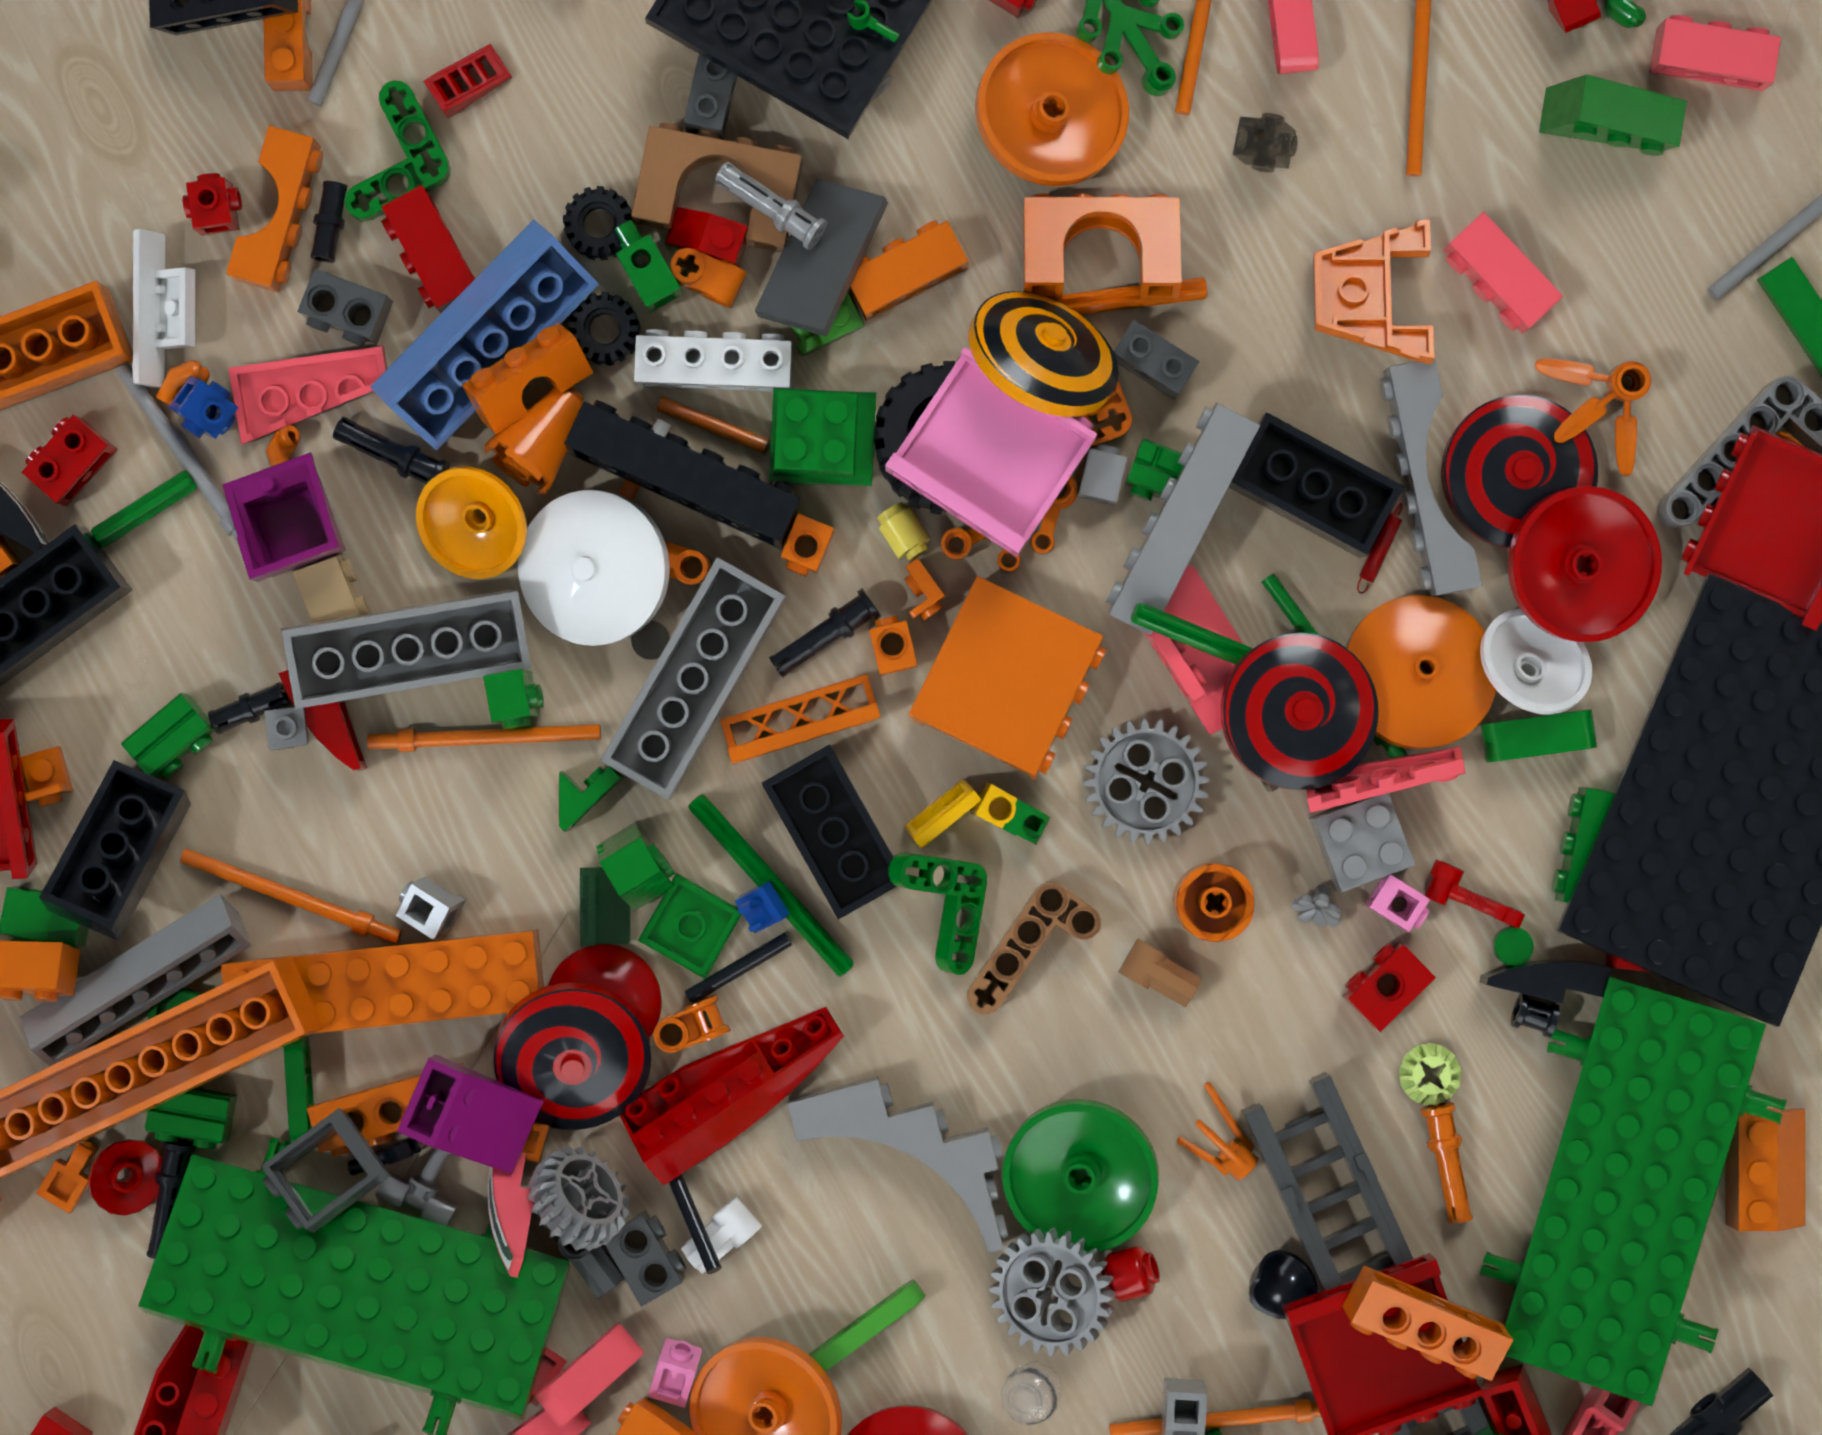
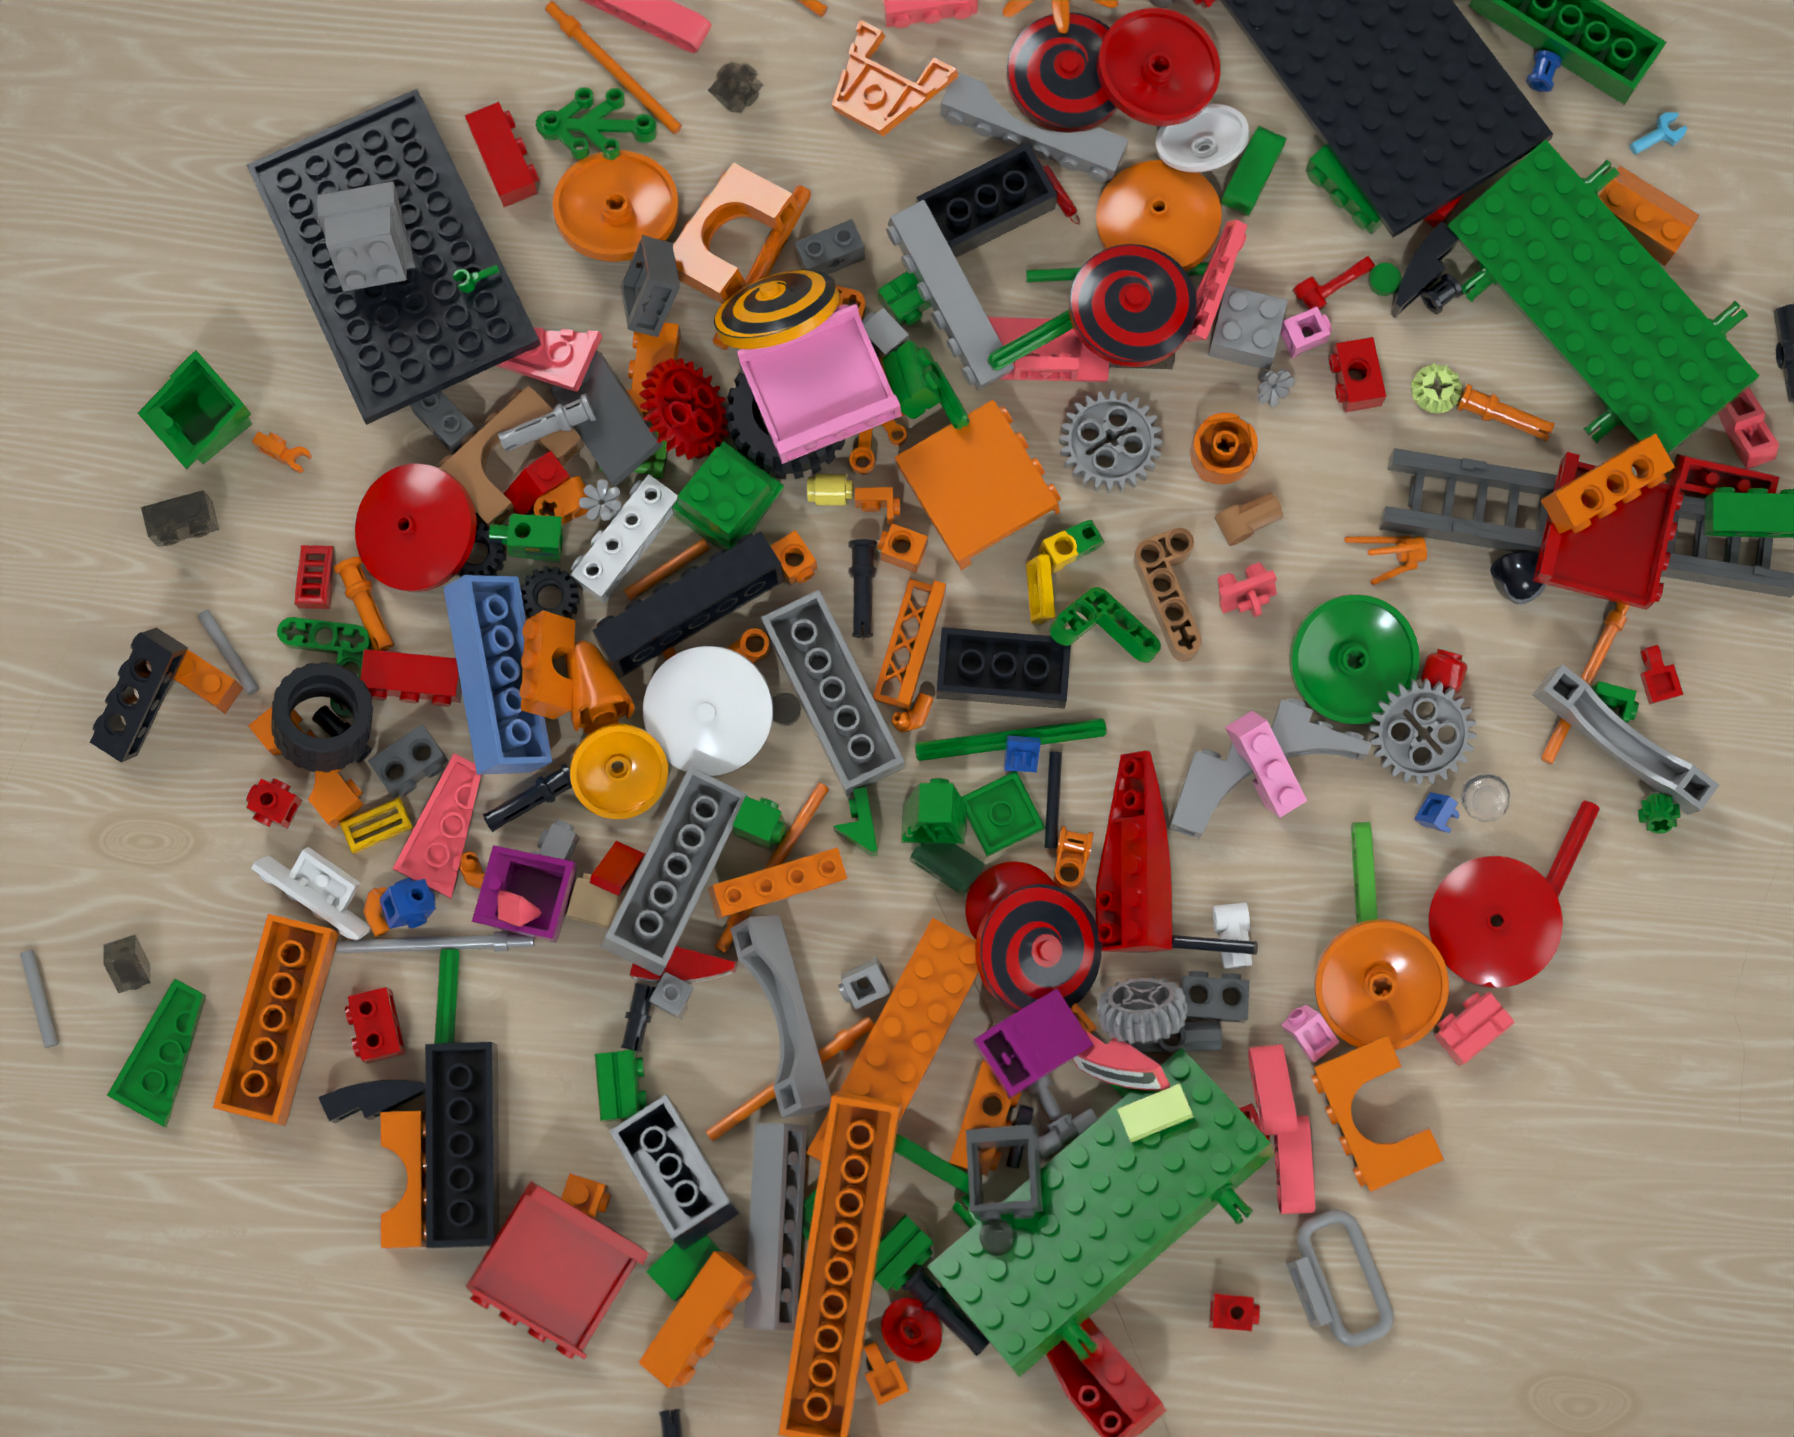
camera: 55 degrees left, 10 degrees down
(258, 521) = (516, 909): none -> coral slope
(258, 1206) = (997, 1237): none -> clear smoke tile
(287, 910) = (800, 1075): none -> light grey arch
(291, 337) = (383, 836): none -> yellow tile
(346, 155) = (321, 681): none -> black tyre
(360, 511) = (558, 841): none -> light grey brick
(375, 587) = (617, 868): none -> red tile
(465, 755) = (777, 883): none -> orange brick
(480, 1280) = (1155, 1113): none -> yellowish green tile
(482, 136) = (360, 591): none -> orange pin
(580, 146) = (415, 527): none -> red dish
(727, 306) = (600, 496): none -> light grey plant
(727, 774) = (913, 718): none -> orange arm
(852, 168) = (559, 359): none -> coral wing
(856, 334) = (684, 408): none -> red gear
(909, 1159) = (1273, 774): none -> bright pink arch
(981, 1357) = (1437, 811): none -> blue tile
(982, 207) = (651, 287): none -> dark grey window
(1070, 538) = (912, 379): none -> green brick
(1078, 584) = (950, 401): none -> green axle
(1078, 1026) = (1247, 593): none -> coral hips

